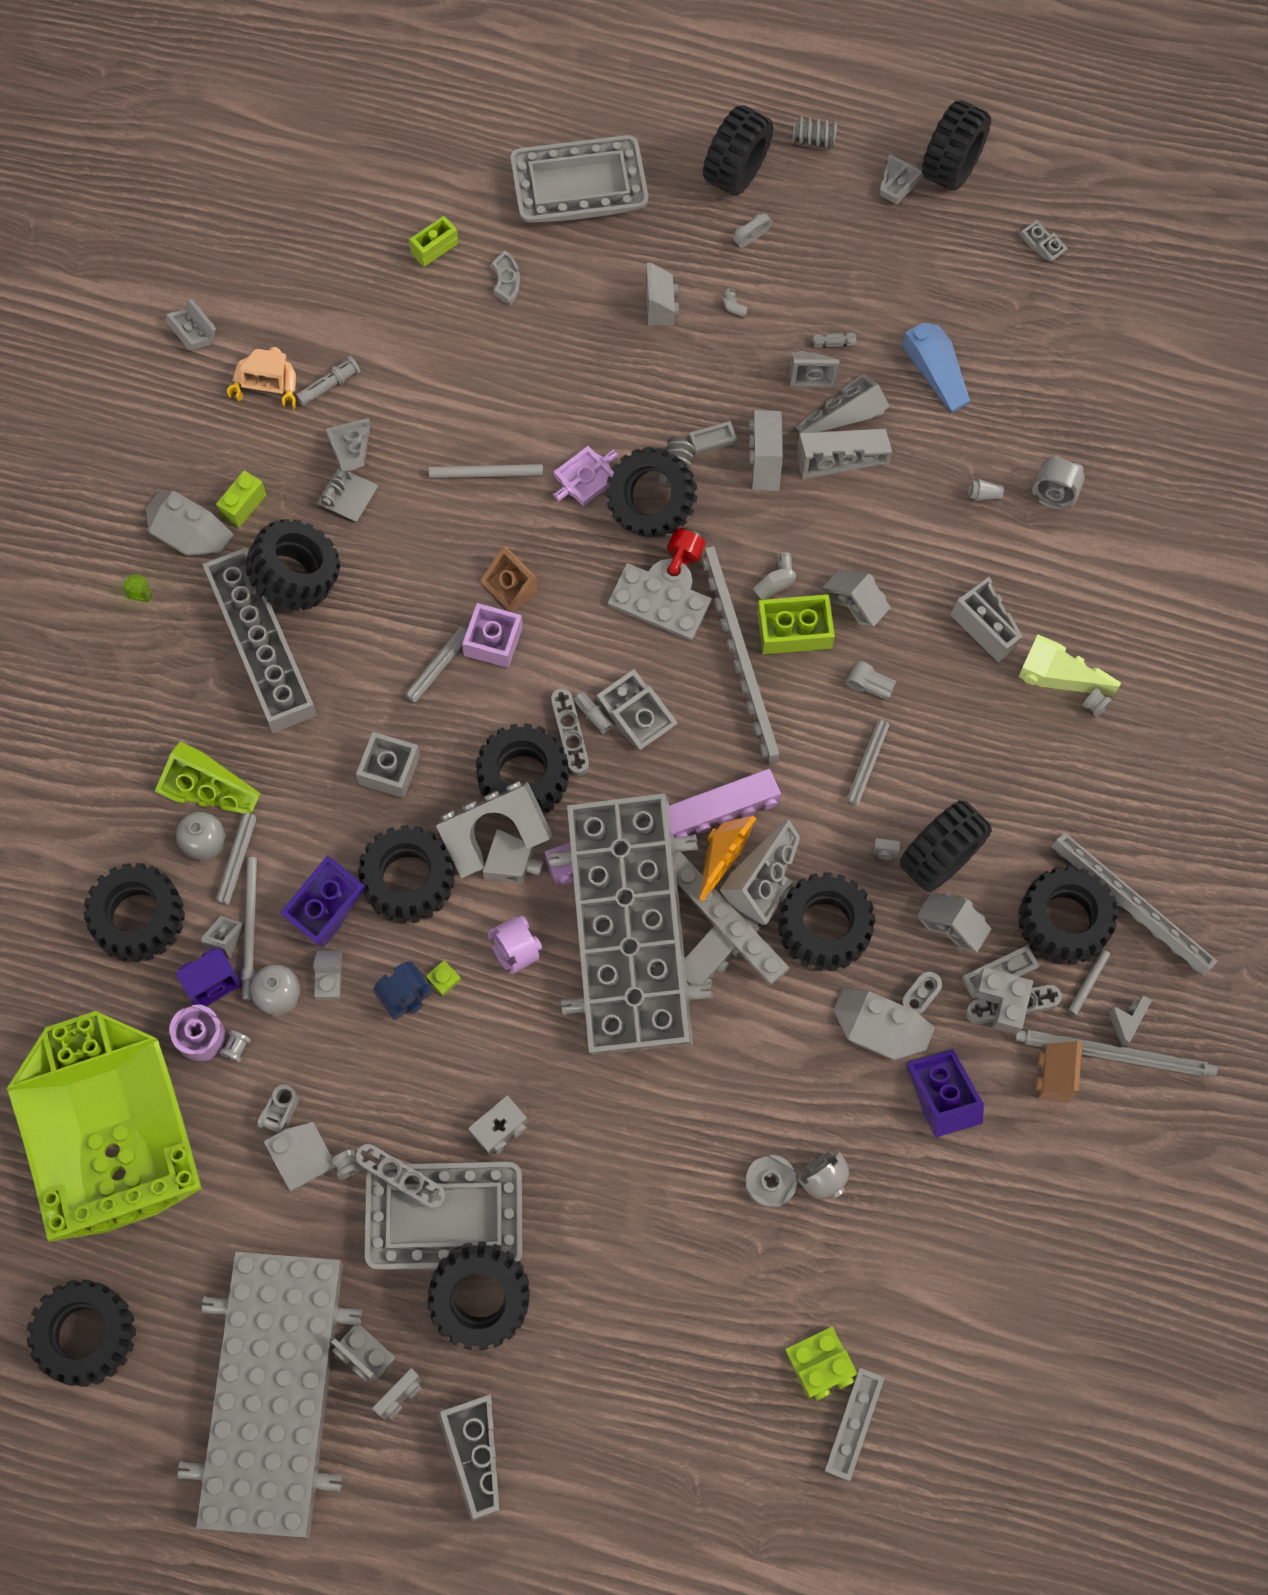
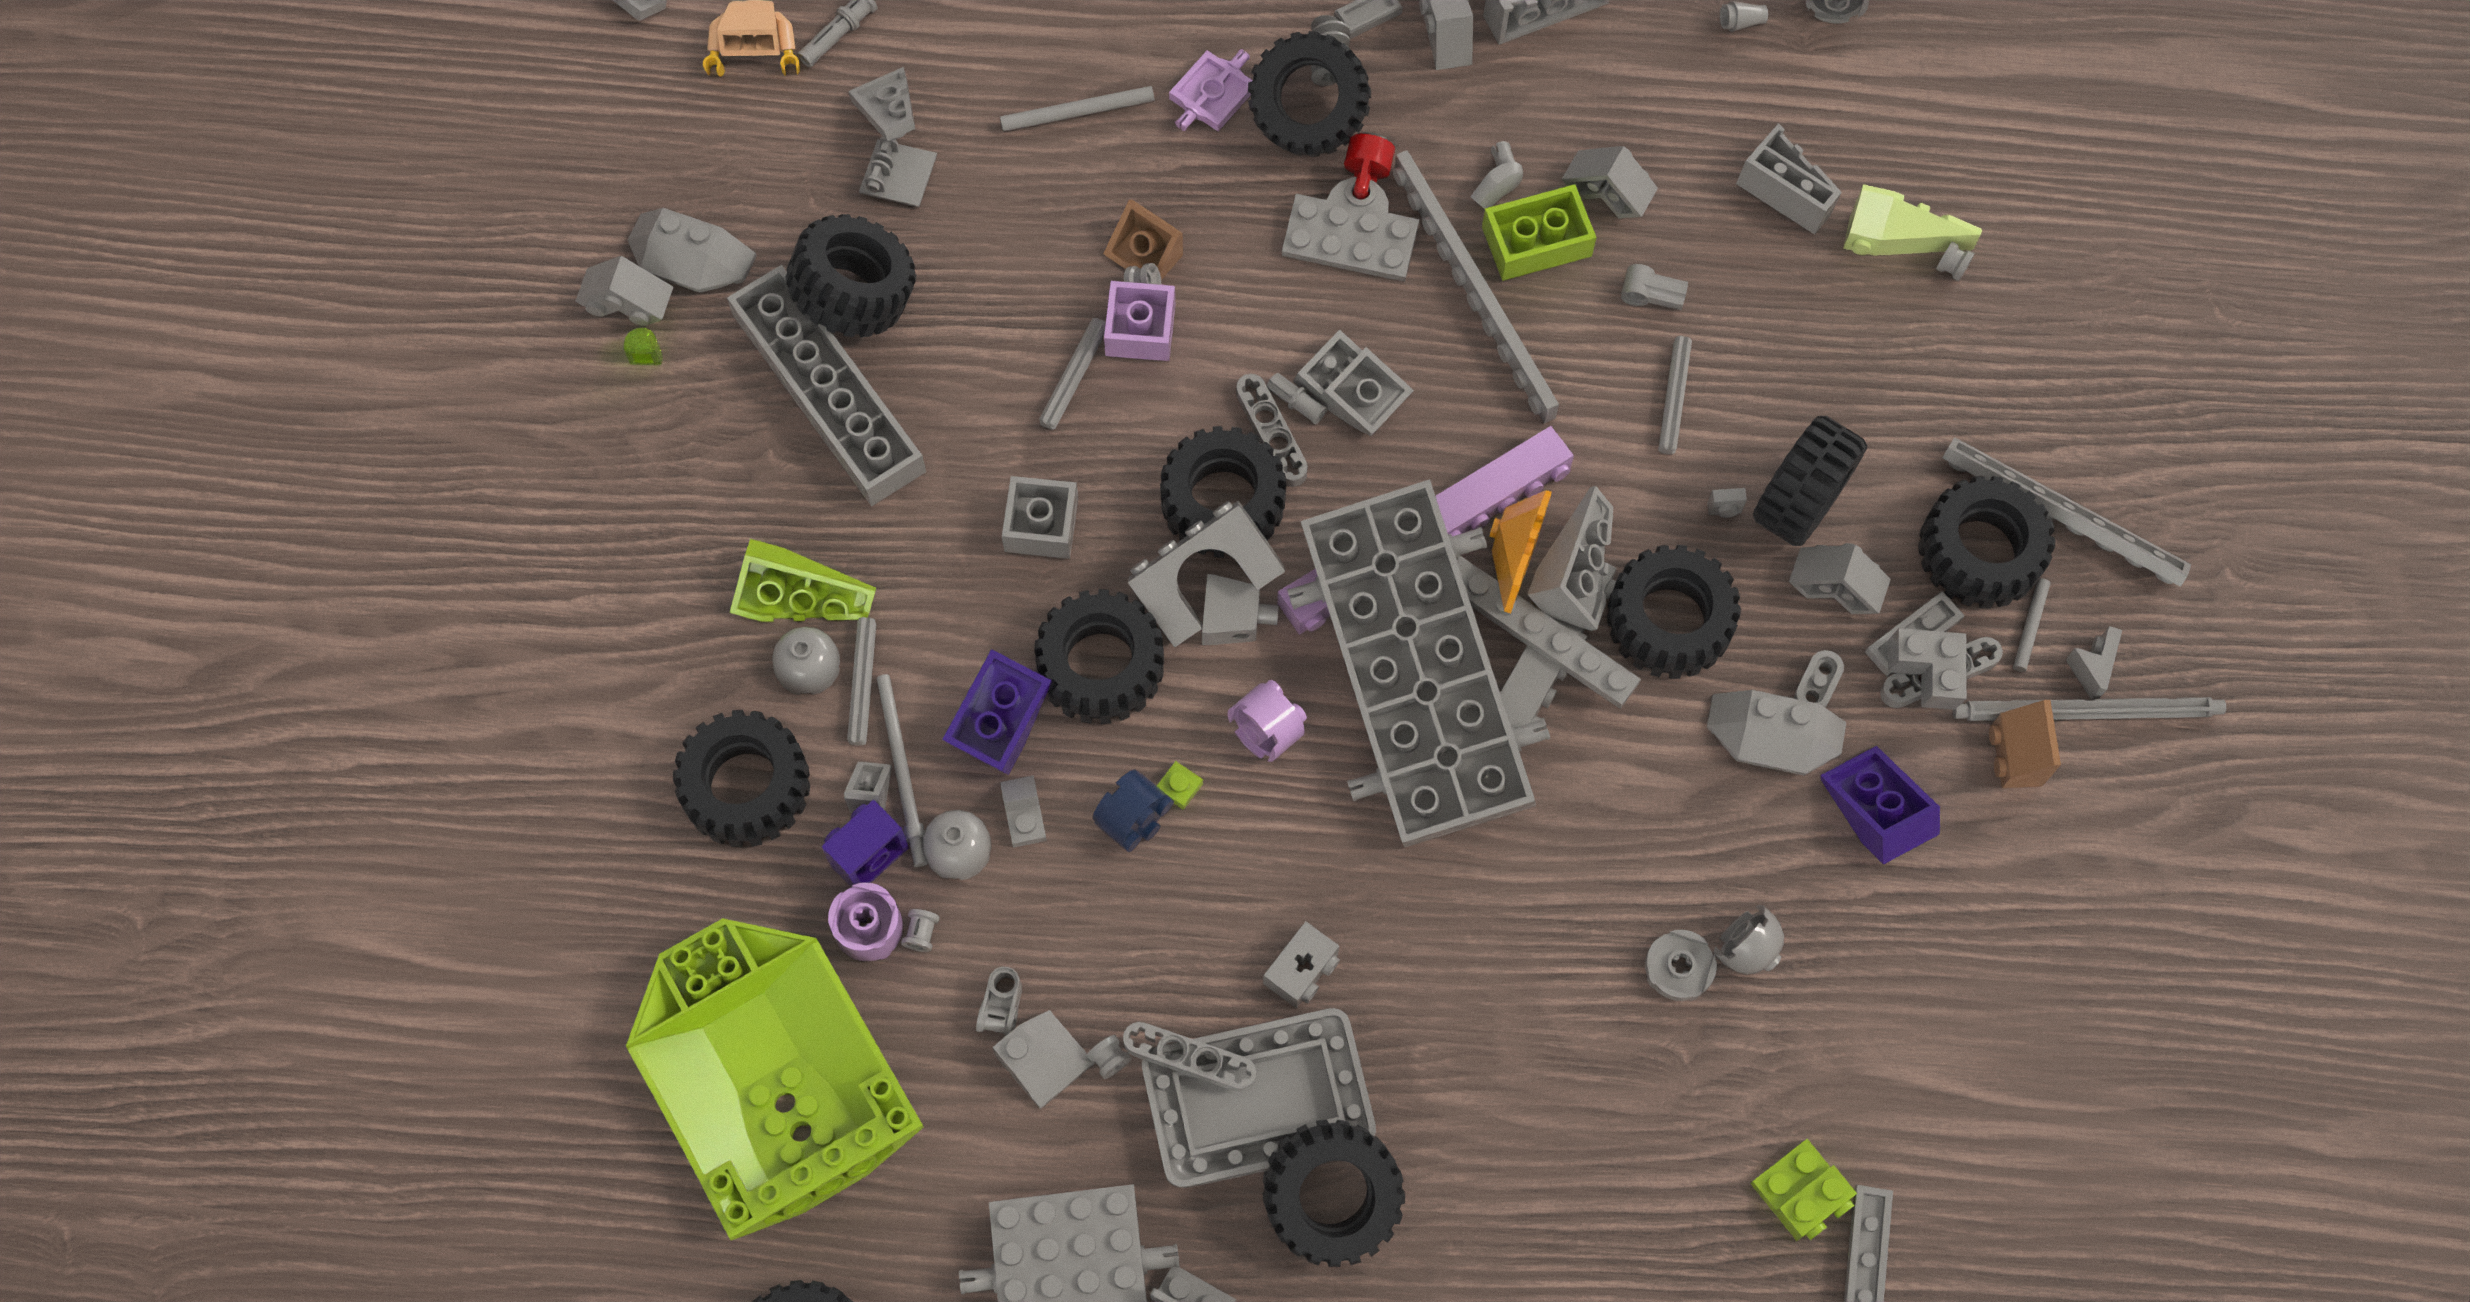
camera: 10 degrees left, 0 degrees up
(133, 543) = (624, 288): none -> light grey brick
(241, 499) = (756, 204): lime brick -> none
(505, 603) = (1147, 274): none -> light grey wheel

